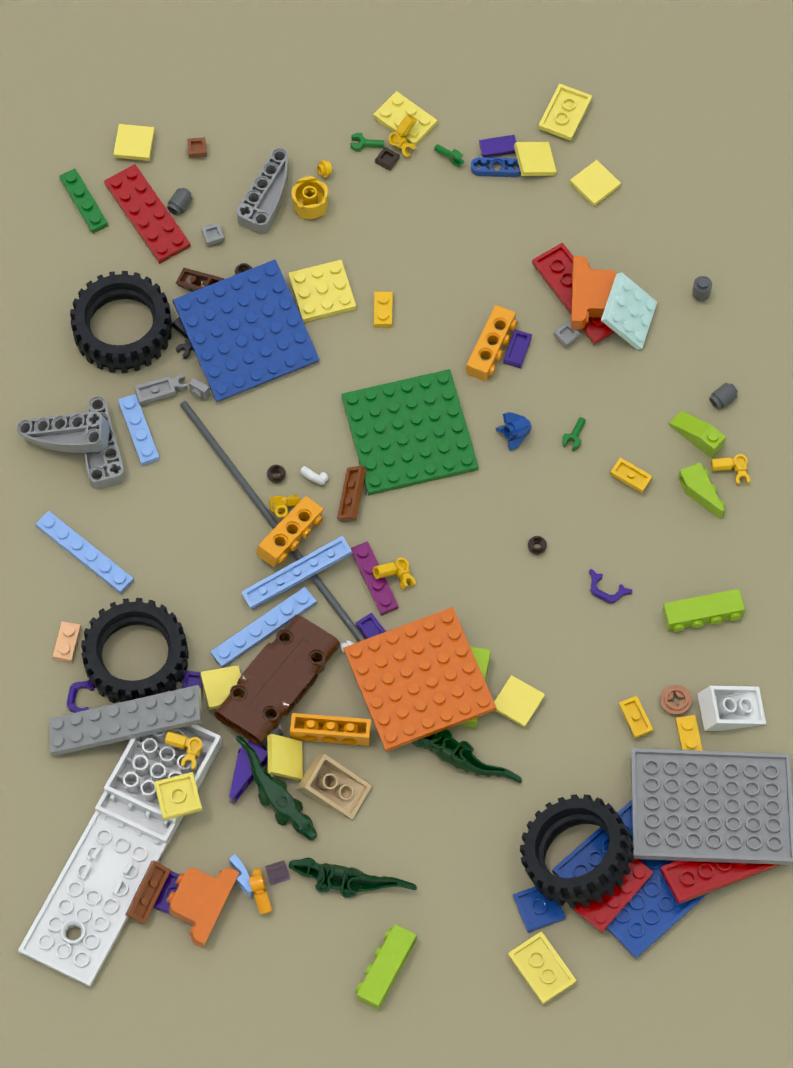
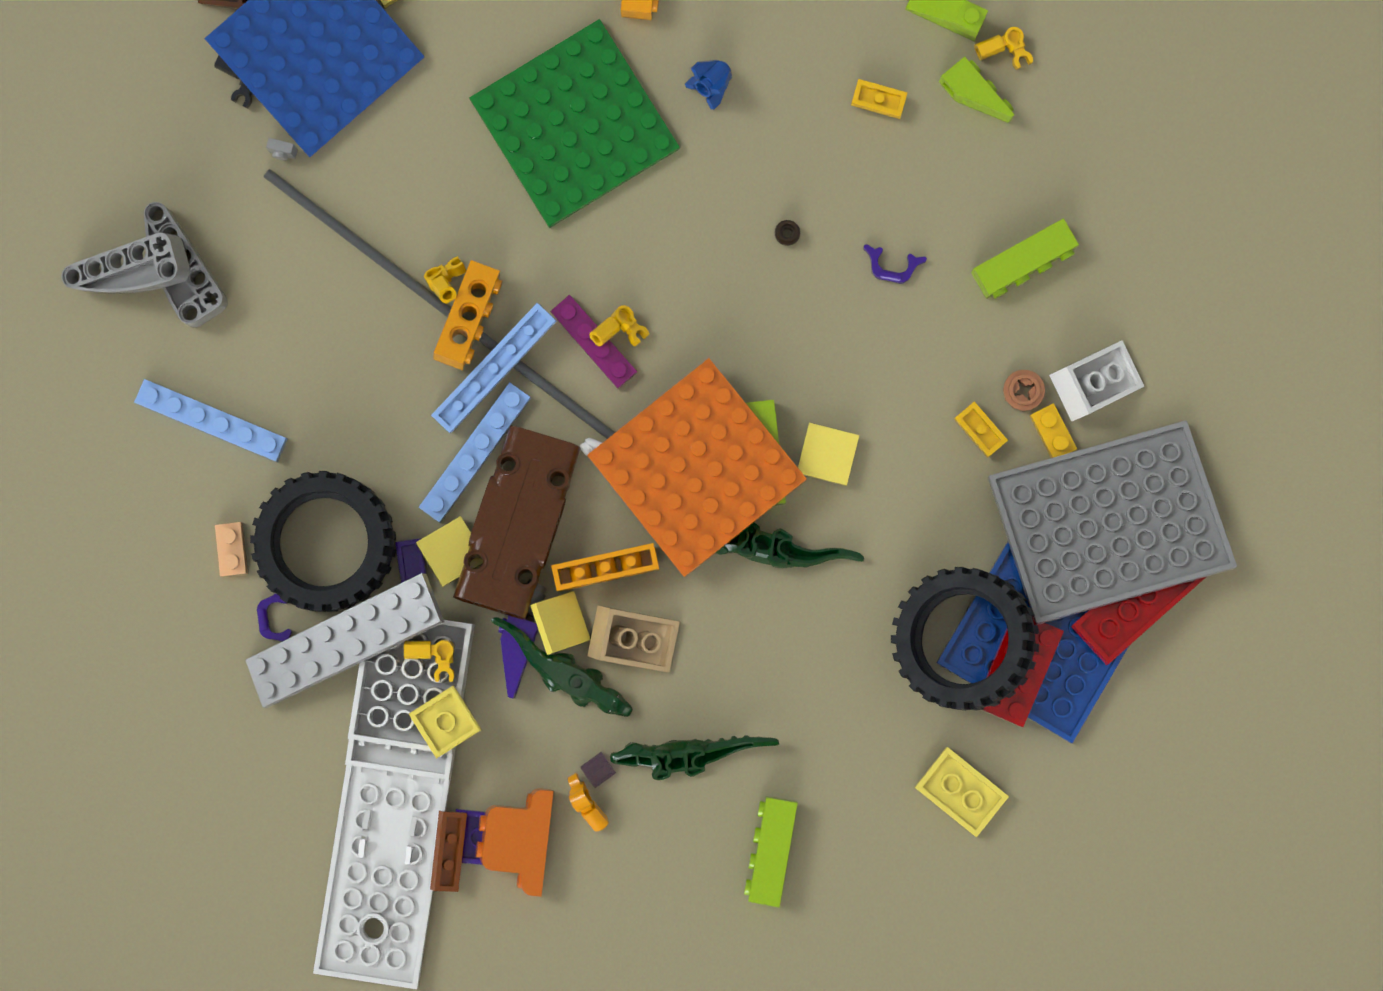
camera: 15 degrees left, 20 degrees up
(115, 288) = (108, 47): black tyre -> none
(138, 429) = (221, 228): light blue plate -> none
(159, 389) = (228, 164): light grey plate -> none
(243, 880) = (562, 795): light blue slope -> none
(276, 469) = (421, 228): dark brown plate -> none
(314, 477) = (470, 226): white arm -> none
(351, 493) = (528, 235): dark orange plate -> none
(369, 626) = (612, 411): dark purple tile -> none
(537, 910) = (930, 720): blue tile -> none
(574, 435) = (788, 64): green bar -> none

